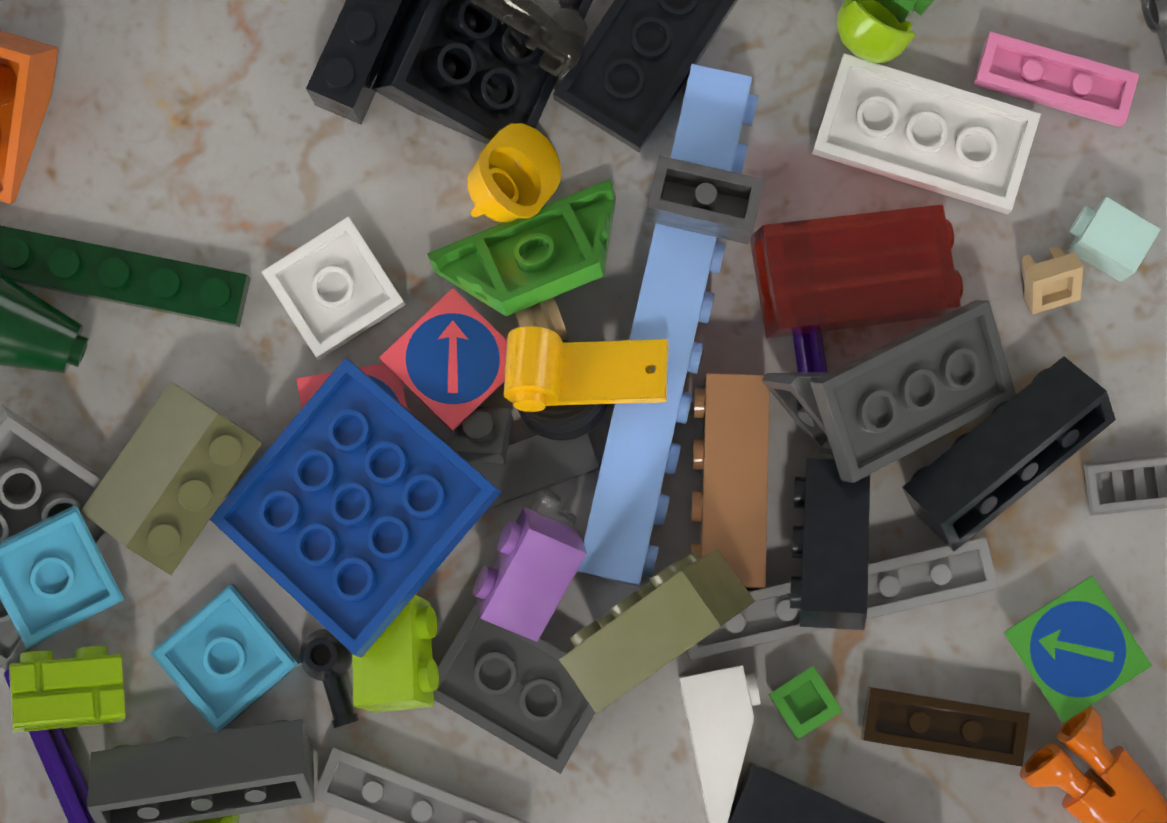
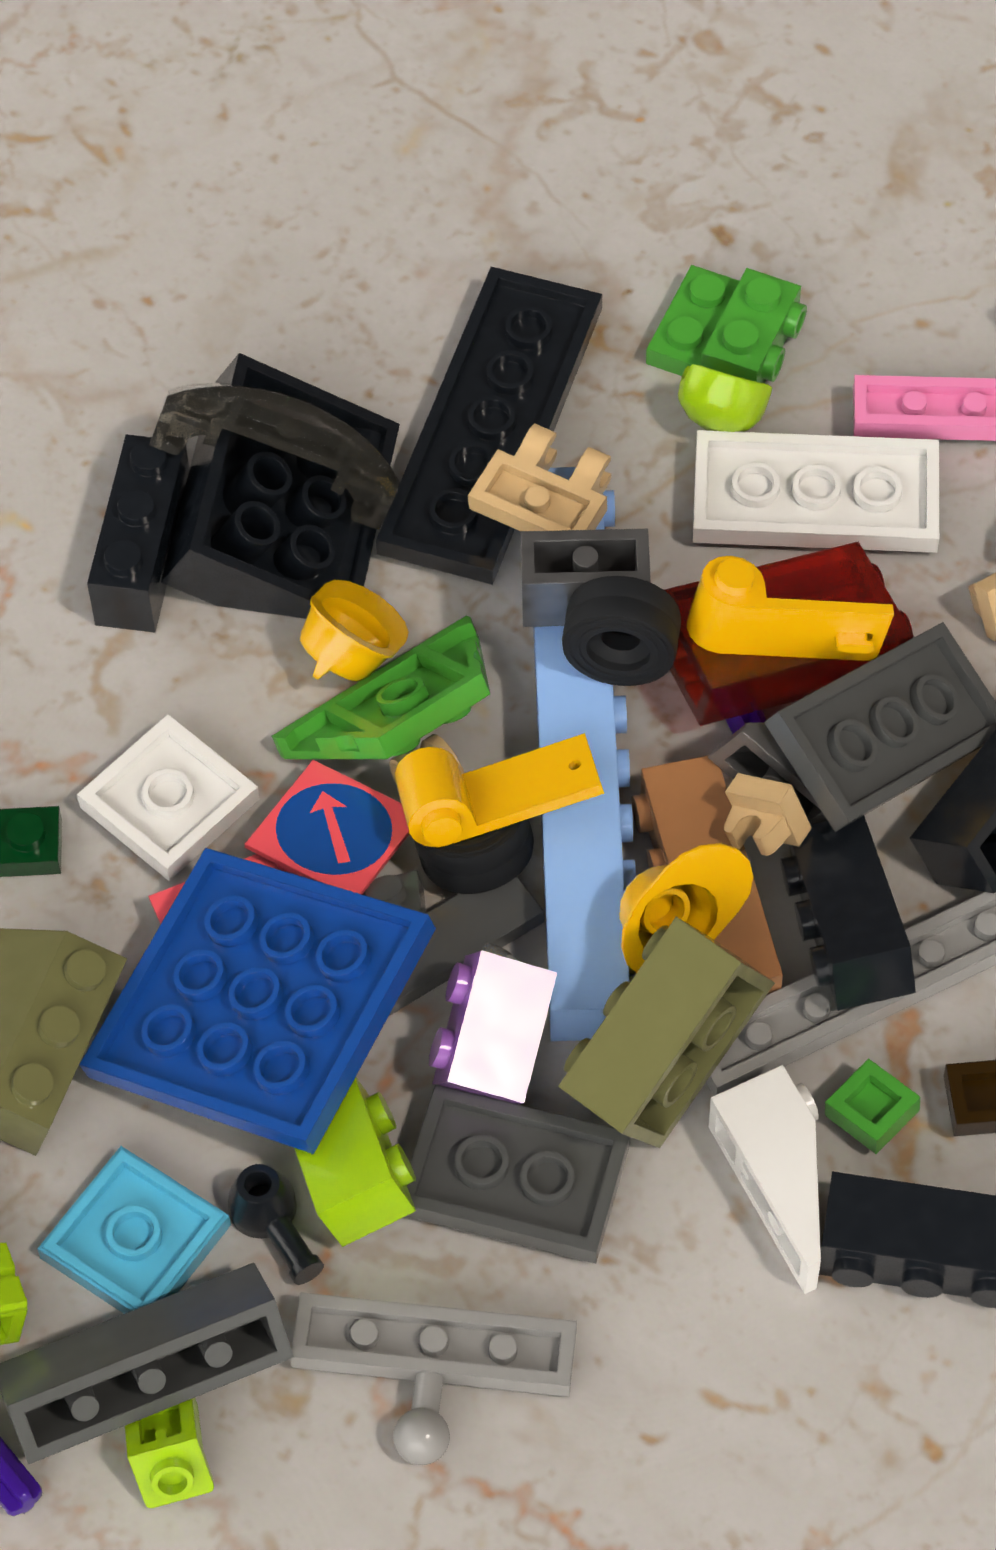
camera: 20 degrees left, 25 degrees down
(688, 106) = (531, 498): none -> tan plate
(694, 521) = (698, 887): none -> yellow piece
(720, 260) = (621, 630): none -> black tyre
(791, 446) = (765, 811): none -> tan tile
(815, 270) = (737, 618): none -> yellow door

